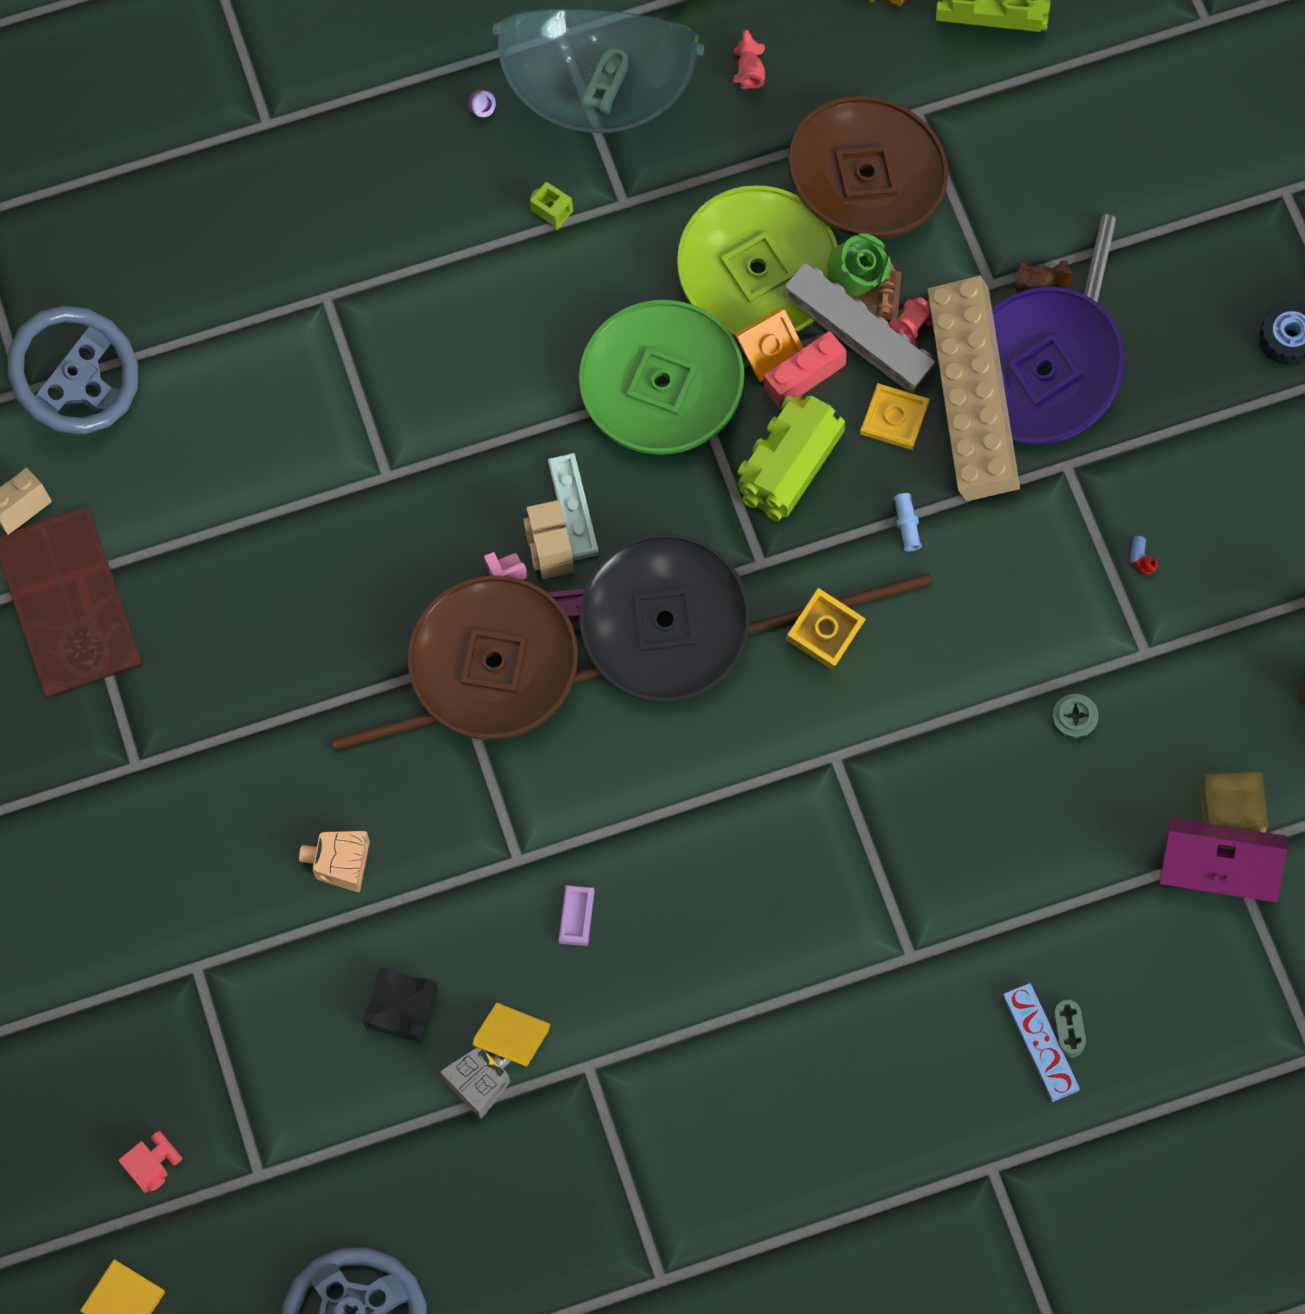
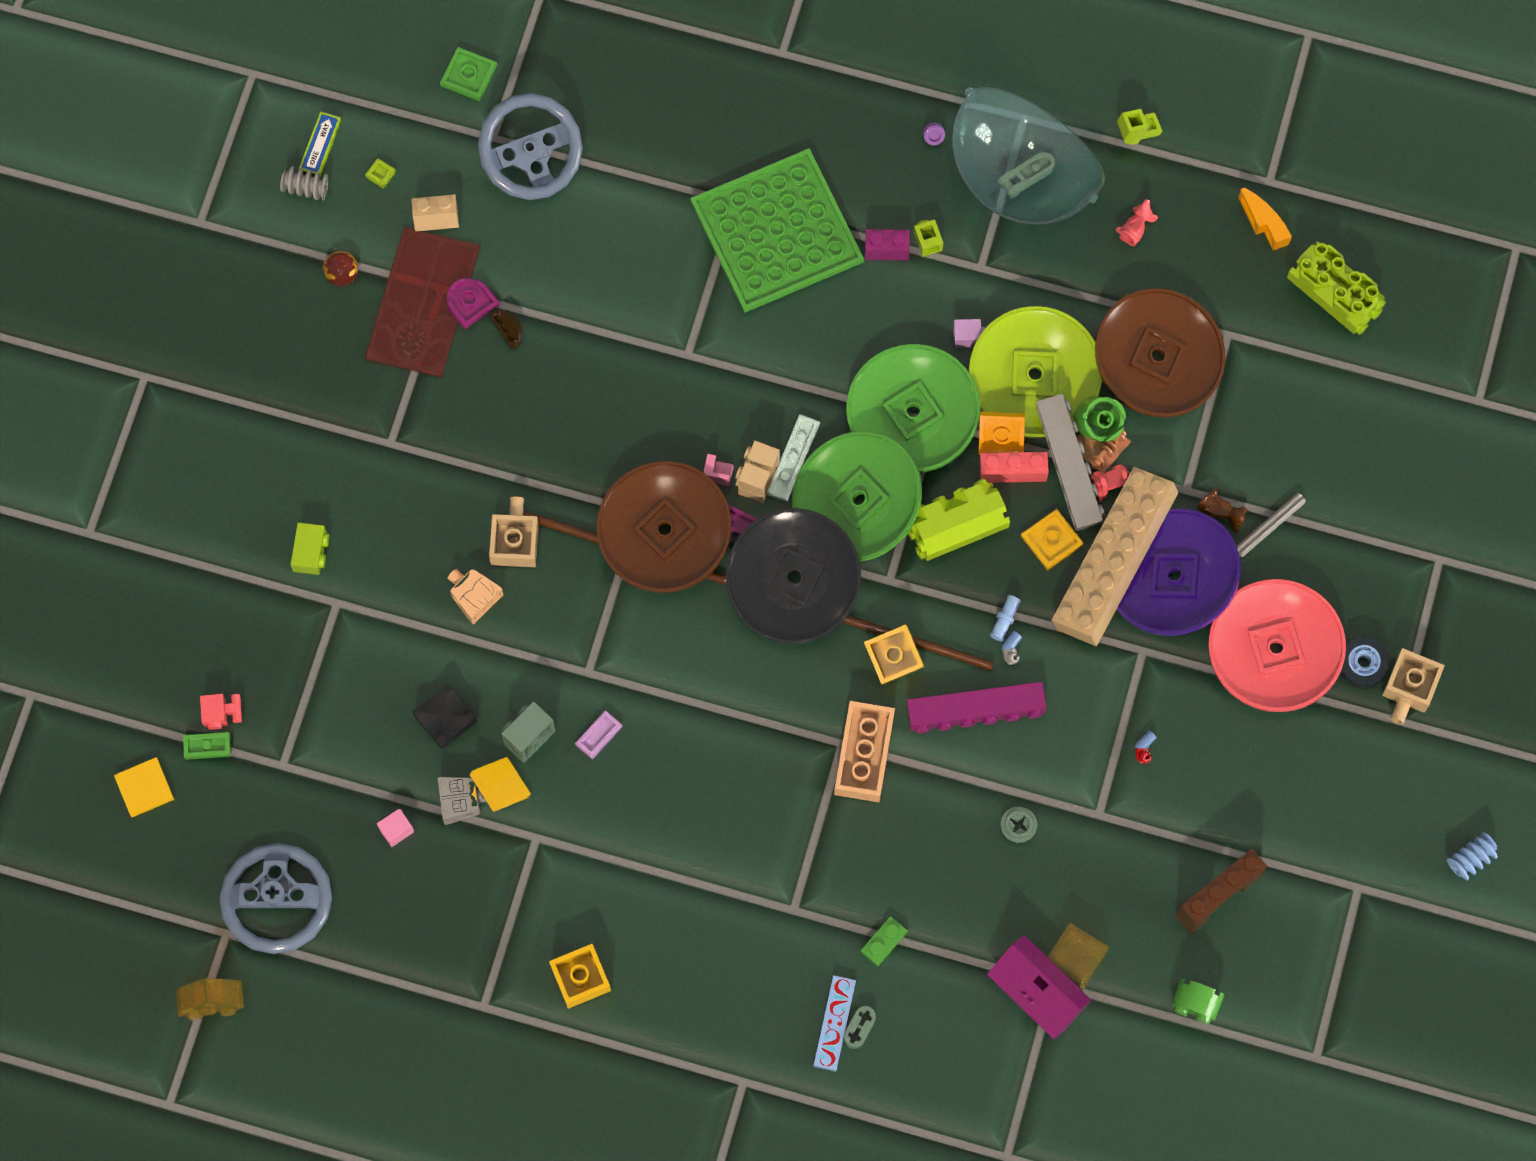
camera: 30 degrees right, 5 degrees up
(118, 567) = (470, 301): none -> magenta tile
(126, 928) = (309, 548): none -> lime brick
(161, 1209) = (207, 745): none -> bright green plate
(177, 565) = (508, 326): none -> dark brown plate
(341, 772) = (514, 537): none -> tan brick
(390, 295) = (777, 230): none -> bright green plate
(431, 1156) = (395, 827): none -> bright pink panel
(502, 959) = (528, 731): none -> sand green brick
(514, 237) = (887, 244): none -> magenta brick
(659, 271) = (966, 332): none -> lavender brick
(667, 459) = (866, 466): none -> bright green dish
(743, 1175) = (580, 976): none -> yellow brick
(867, 746) = (864, 751): none -> light nougat brick
(933, 550) = (1009, 650): none -> arm
(945, 627) = (976, 707): none -> magenta brick
(1028, 924) = (884, 941): none -> bright green plate
(1207, 336) = (1284, 615): none -> coral dish

